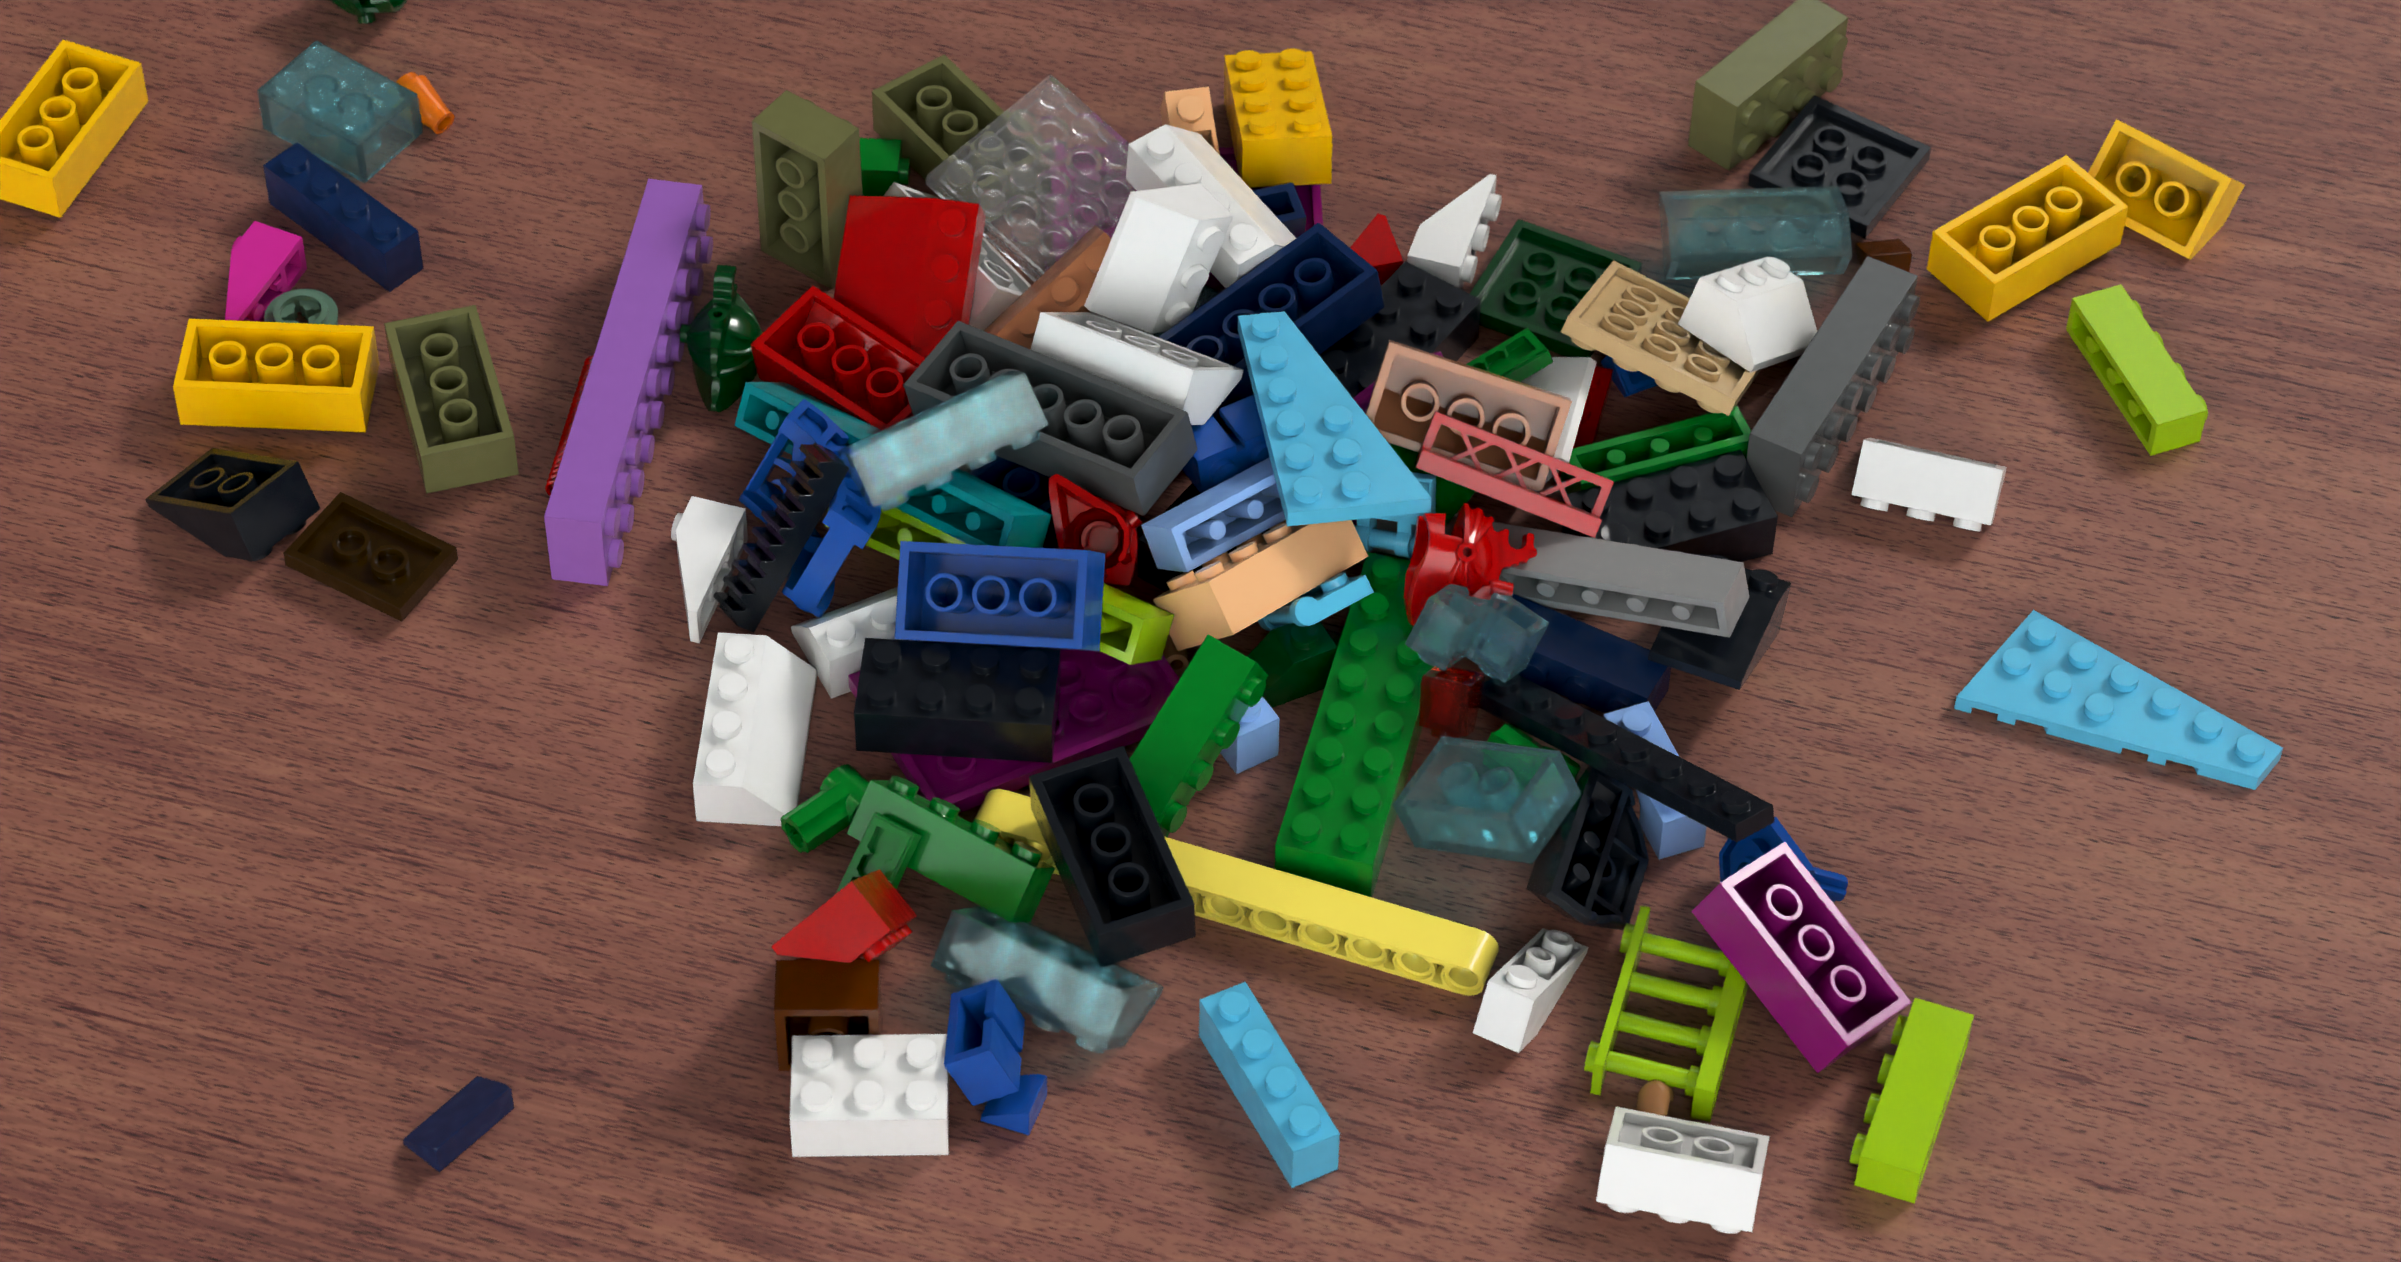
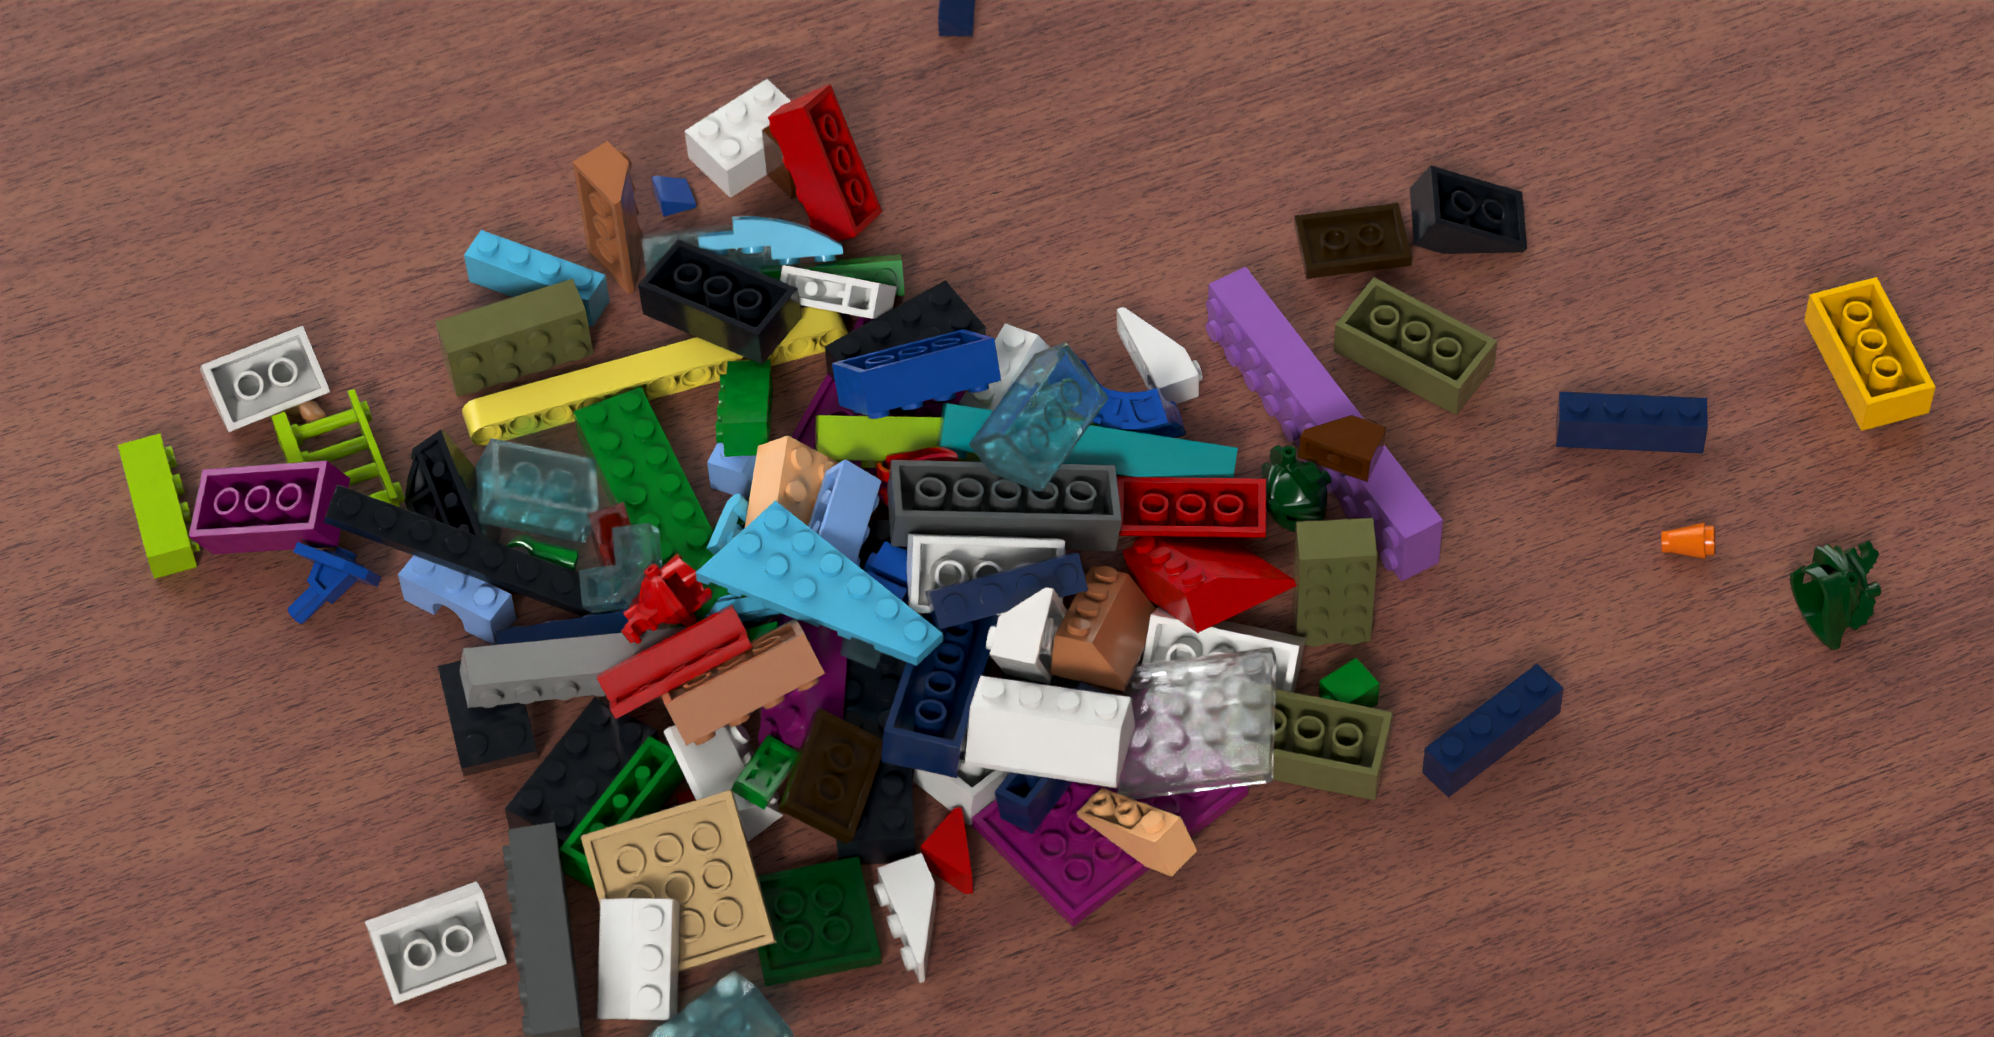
camera: 145 degrees right, 5 degrees up
(262, 268) = (1629, 349): dark pink slope -> none
(276, 375) = (1533, 289): yellow brick -> none
(312, 304) = (1571, 343): sand green gear -> none
(340, 111) = (1728, 489): clear light blue brick -> none
(666, 265) = (1344, 445): none -> reddish brown slope
(753, 732) = (1018, 279): white slope -> none
(783, 536) = (1104, 355): black gear -> none
(795, 60) = (1492, 730): none -> dark blue brick
(827, 810) = (928, 266): green piece -> none
(883, 847) = (864, 246): green plate -> none
(966, 774) = (840, 292): none -> white slope
(984, 1042) = (708, 187): blue piece -> none
(992, 897) = (786, 240): none -> medium azure slope
(1137, 1018) = (610, 212): none -> nougat slope
(1142, 304) = (1004, 590): none -> dark blue brick
(1277, 118) = (1108, 897): yellow brick -> none
(1364, 1002) = (514, 337): none -> olive brick
(1448, 307) = (832, 776): none -> dark brown plate
(1528, 989) = (431, 407): white slope -> none
(2107, 703) = (225, 857): medium azure wing -> none

